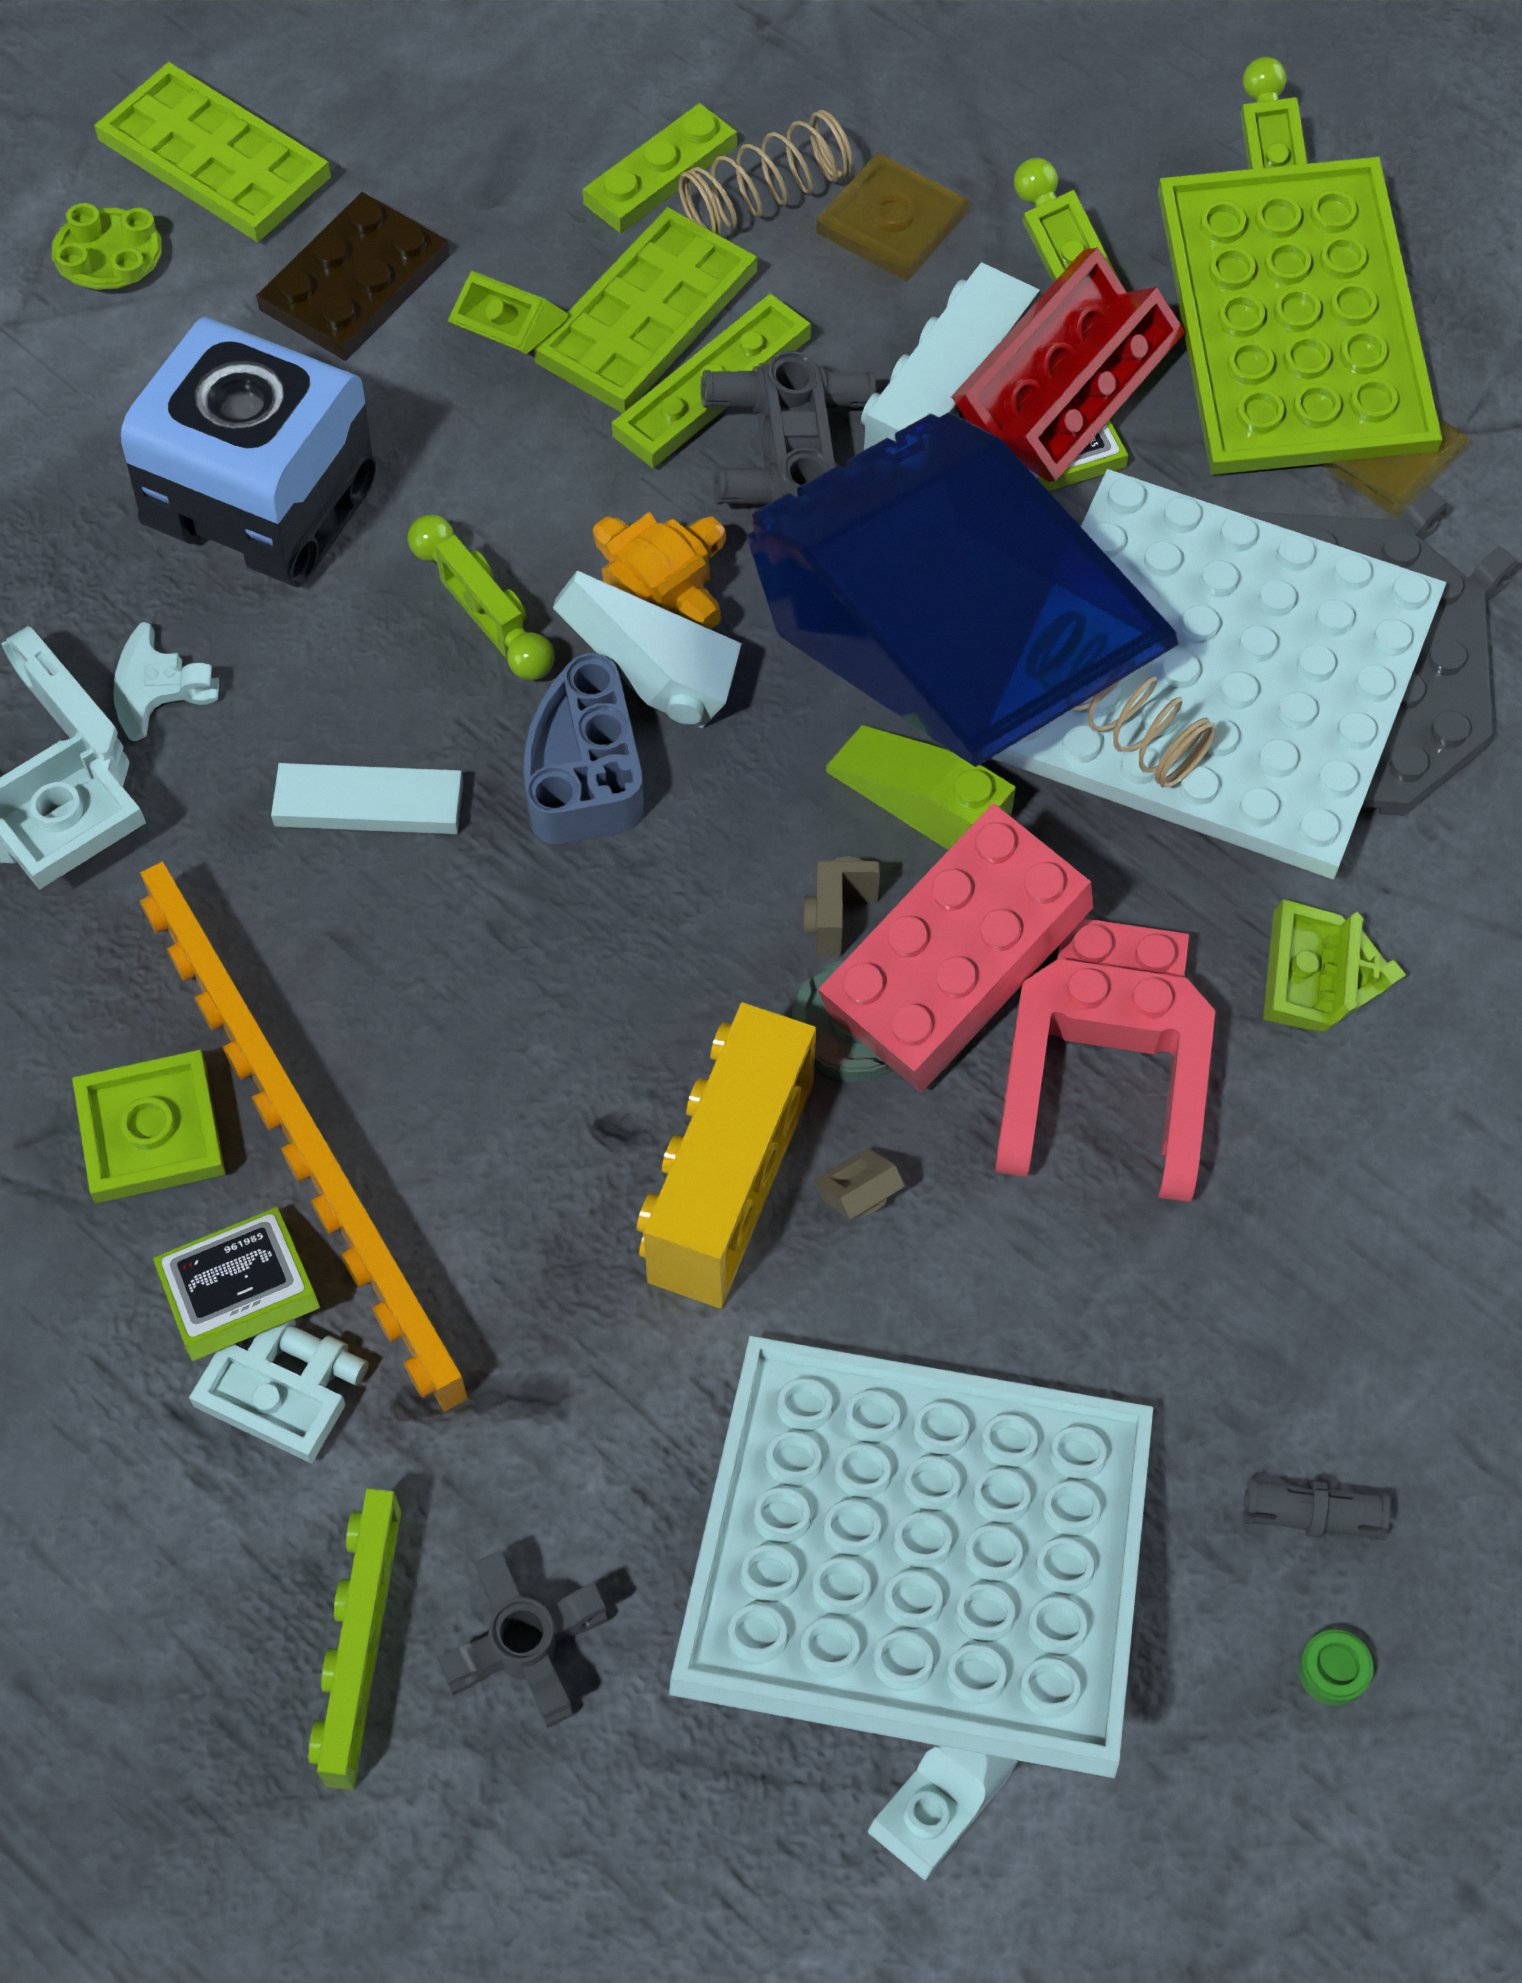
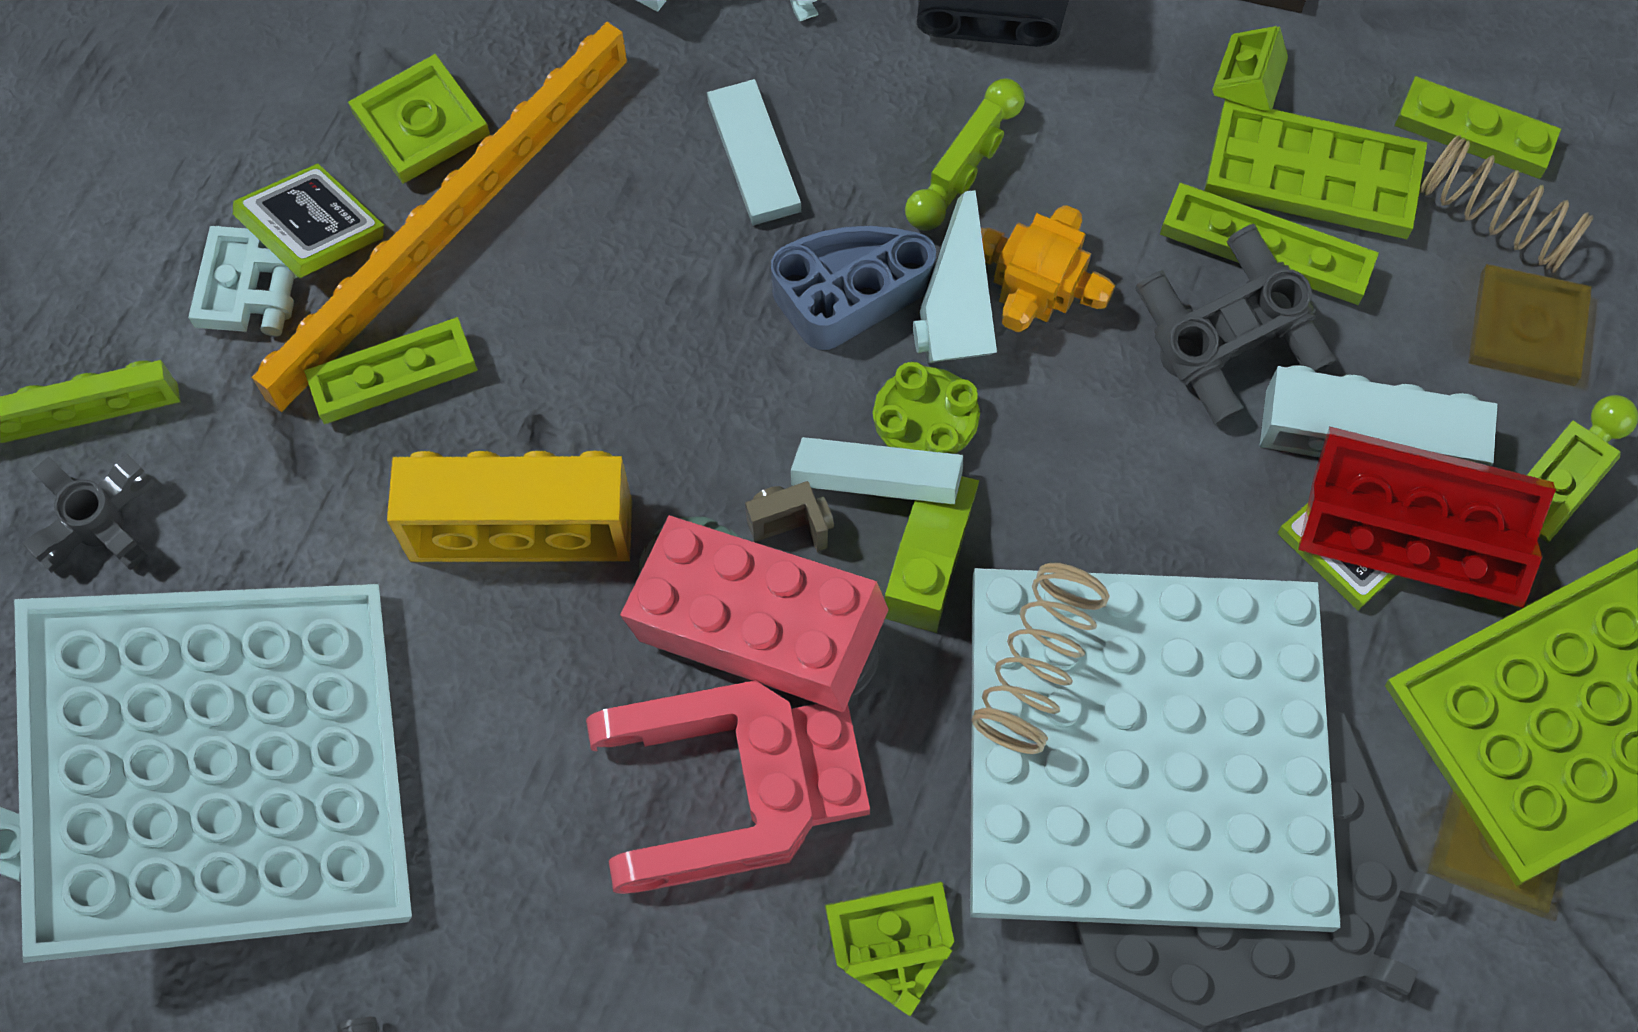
camera: 70 degrees right, 5 degrees up
(479, 1252) = (390, 370): none -> lime plate
(767, 741) = (926, 410): none -> lime dish
(820, 804) = (878, 470): none -> light aqua tile
(859, 1184) = (536, 620): dark tan plate -> none
(951, 588) = (1089, 485): clear blue windscreen -> none

